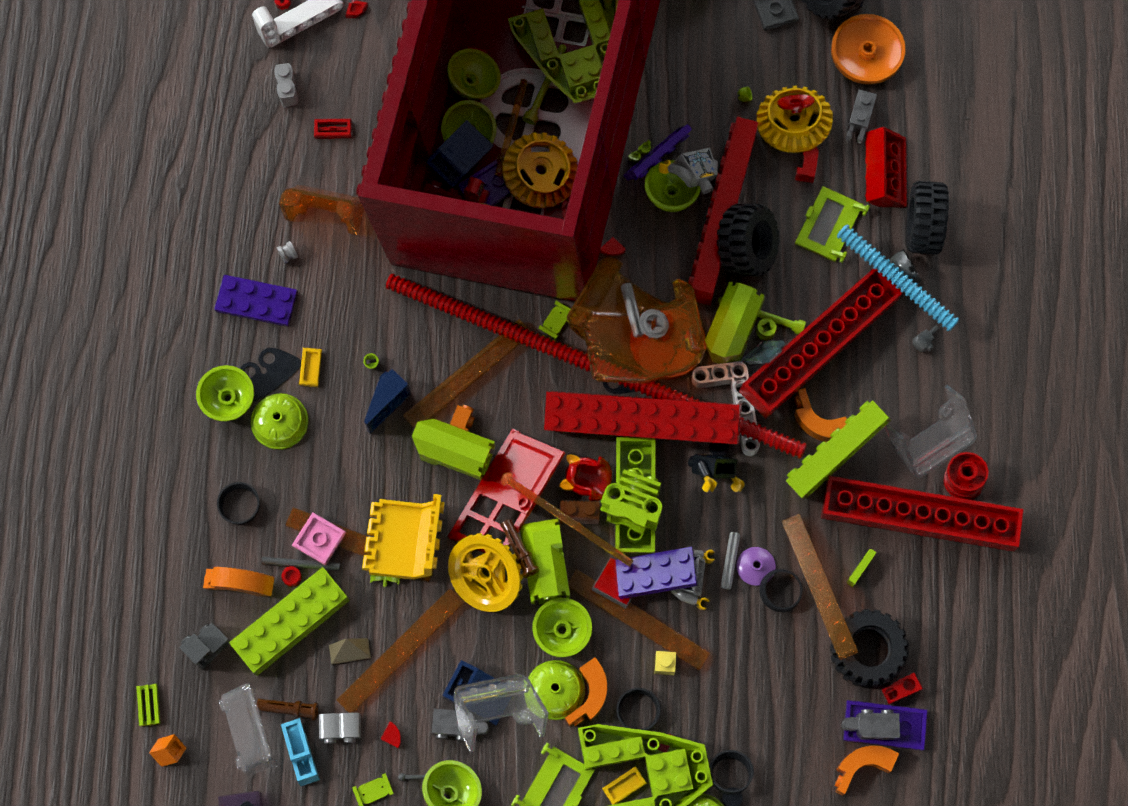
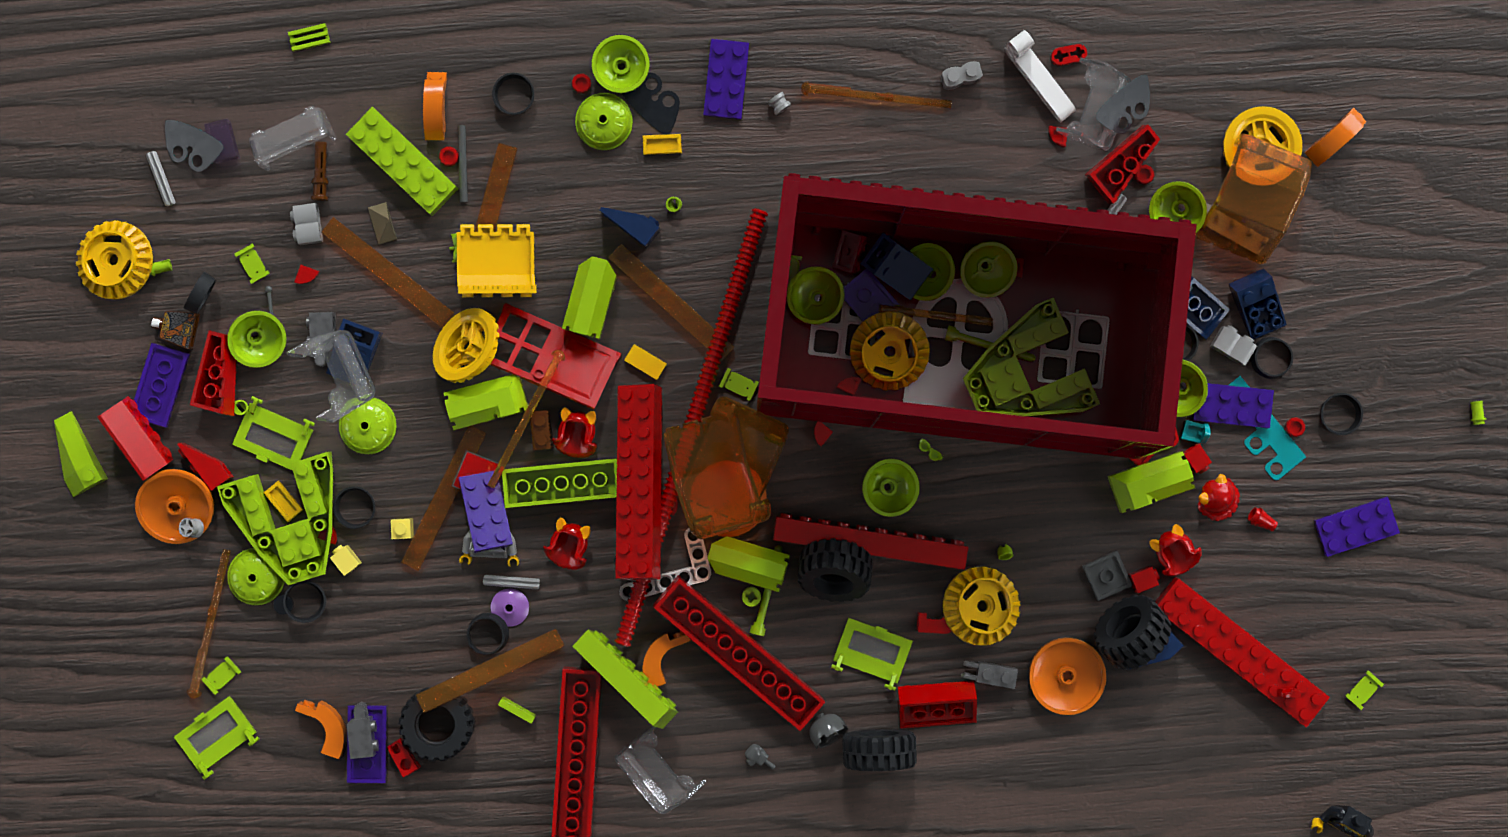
camera: 80 degrees right, 15 degrees up
(167, 750) = (267, 63): orange panel -> none
(205, 646) = (364, 79): dark grey brick -> none
(238, 438) = (581, 83): none -> red tile
(276, 225) = (847, 92): none -> clear orange bar
(300, 197) = (836, 157): clear orange windscreen -> none
(300, 752) = (279, 189): medium azure slope -> none
(319, 539) = (486, 178): bright pink tile -> none
(332, 131) = (913, 130): red tile -> none
(463, 417) = (622, 303): orange brick -> none
(475, 191) = (855, 288): red leg -> none
(523, 406) = (645, 362): none -> yellow tile
(523, 555) = (482, 380): reddish brown pin -> none
(558, 614) = (409, 426): lime hat -> none
(597, 682) = (380, 463): orange arch -> none
(632, 309) = (748, 460): light grey axle -> none
(635, 498) = (546, 482): lime piece -> none
(660, 321) = (738, 490): light grey gear -> none
(661, 149) = (926, 468): dark purple plate -> none
(691, 725) = (345, 559): none -> light yellow brick
(694, 168) = (908, 508): light grey torso -> none
(697, 501) = (568, 545): none -> red hair
(715, 466) = (597, 556): black torso -> none
(764, 352) = (719, 596): clear light blue piece -> none
(795, 102) = (993, 605): red dish -> none
(897, 277) = (812, 724): medium azure piece -> none
(966, 476) = (623, 816): red wheel -> none

